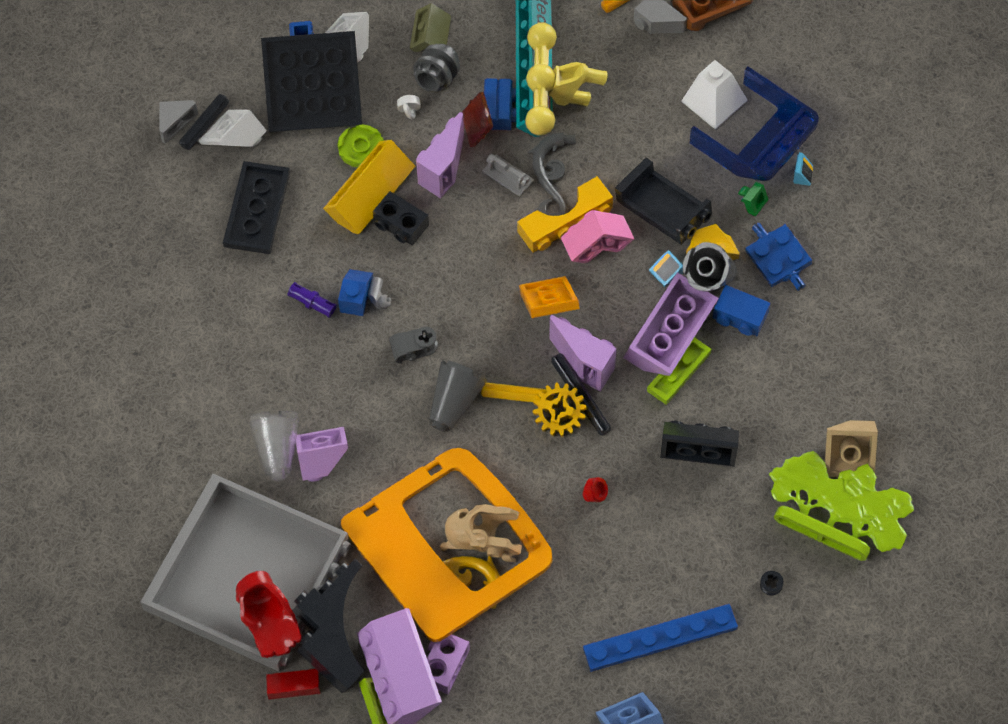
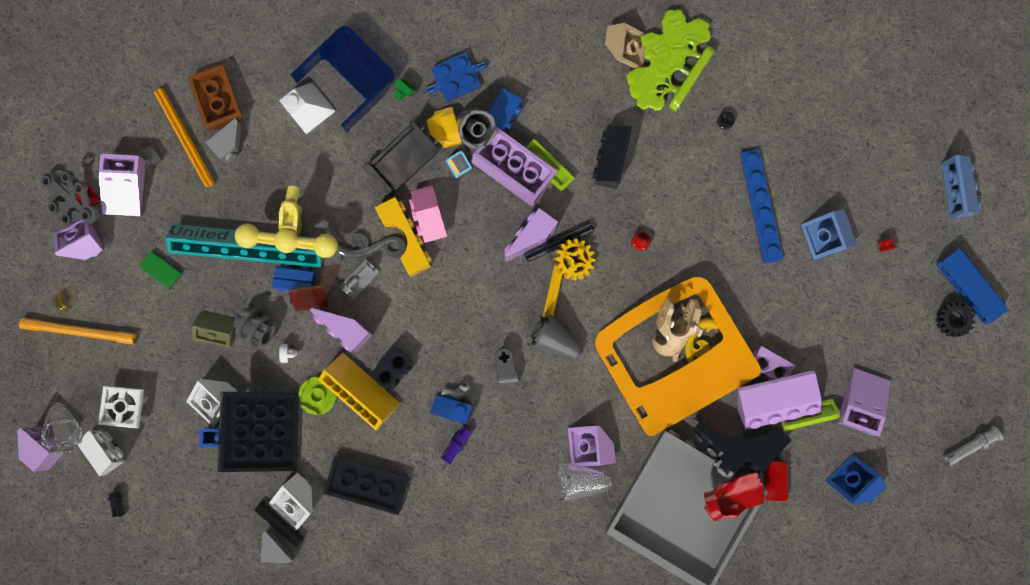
camera: 85 degrees left, 20 degrees up
(549, 297) = (481, 256): light orange tile -> none
(803, 170) = (383, 48): medium azure slope -> none

